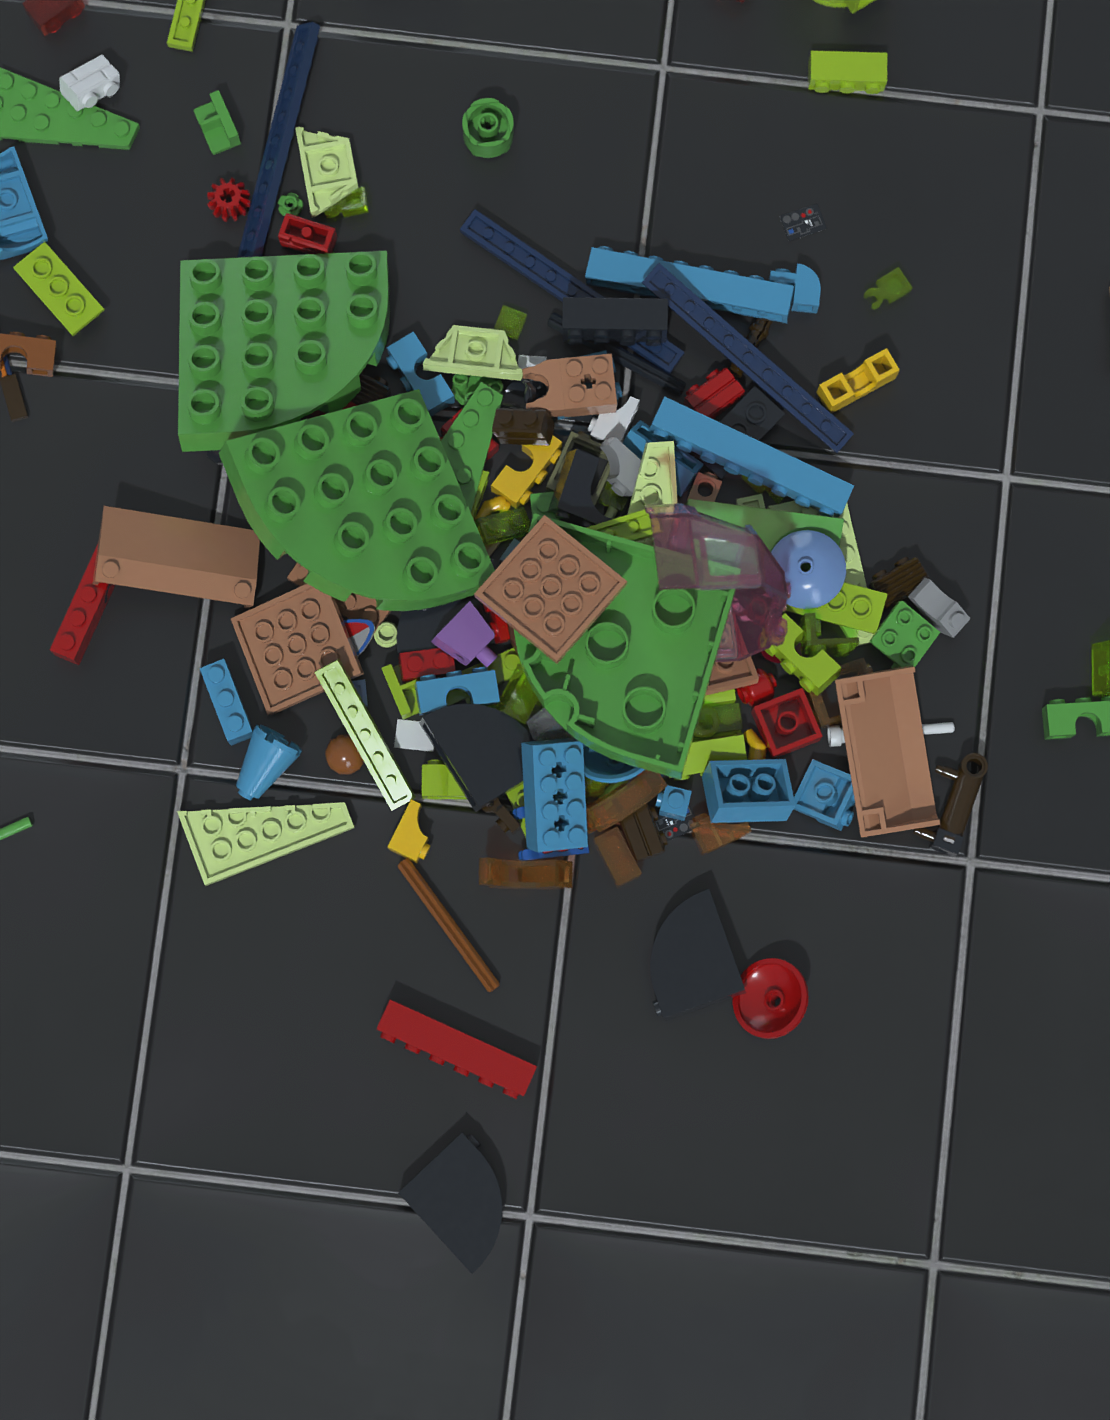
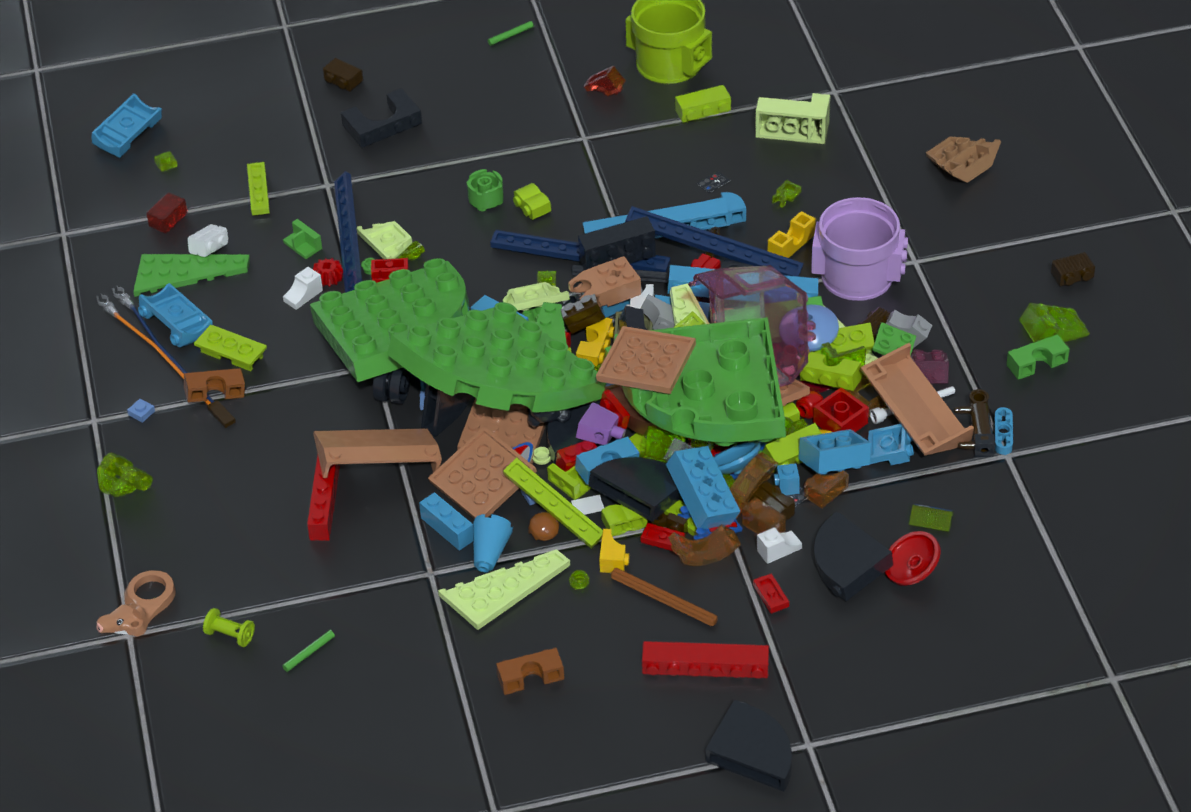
camera: 15 degrees left, 35 degrees down
(187, 218) = (305, 287): none -> white arch
(218, 976) = (544, 664): none -> dark orange arch
(347, 857) = (579, 579): none -> clear neon green plate
(483, 832) = (658, 536): none -> red plate
(544, 171) = (532, 201): none -> lime brick
(579, 974) = (771, 593): none -> red plate
(621, 900) = (775, 545): none -> white arch
(829, 929) = (931, 517): none -> clear neon green panel
(941, 677) = (932, 364): none -> clear pink bracket
(955, 161) = (793, 119): none -> yellowish green hinge
(955, 421) = (859, 248): none -> lavender cylinder
(998, 808) = (1008, 425): none -> dark azure beam

